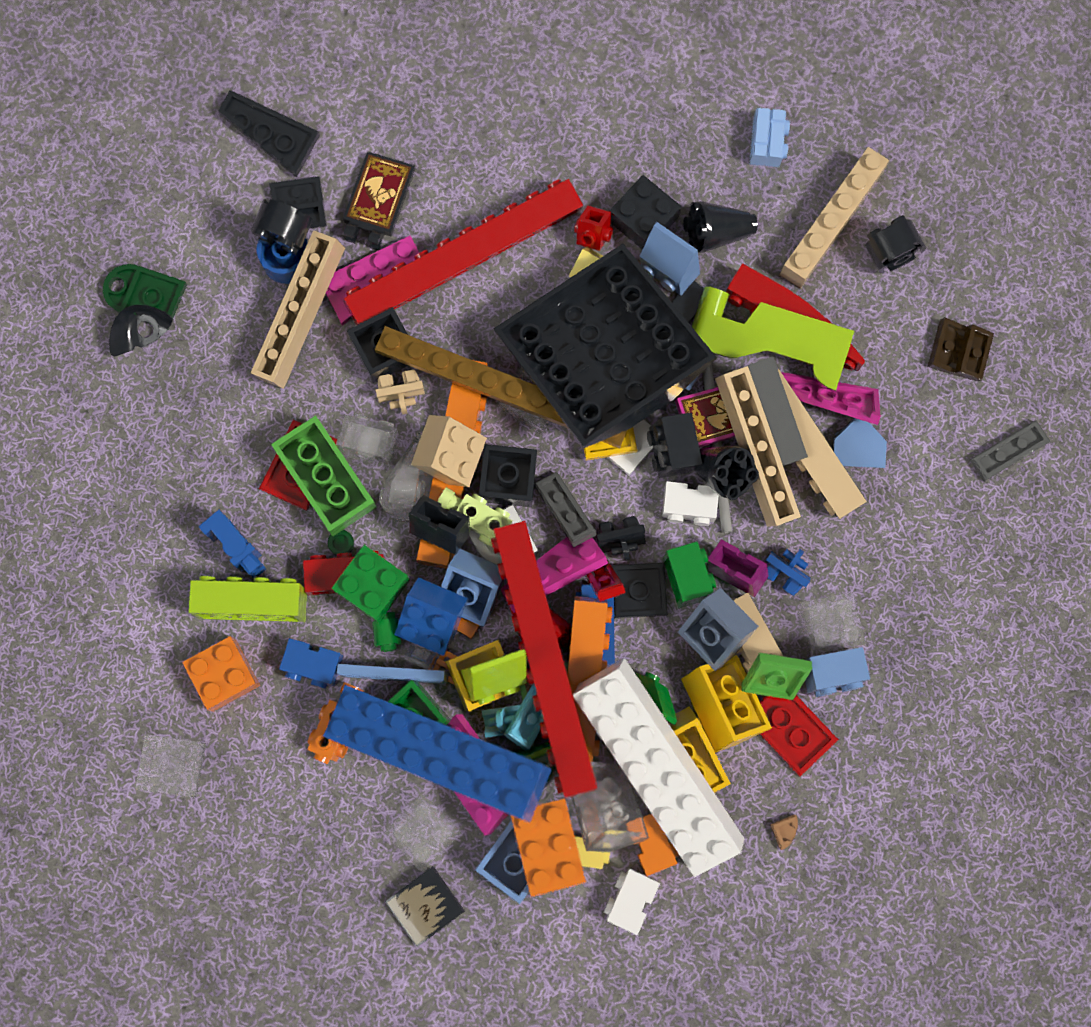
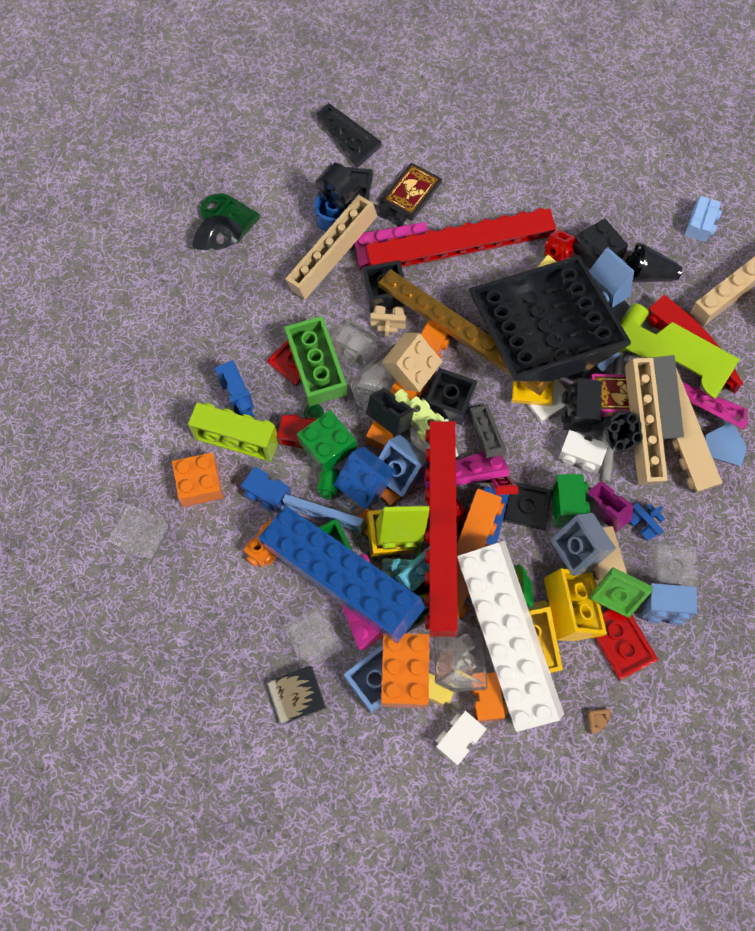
camera: 20 degrees right, 10 degrees down
(621, 540) = (524, 464): black hips -> none

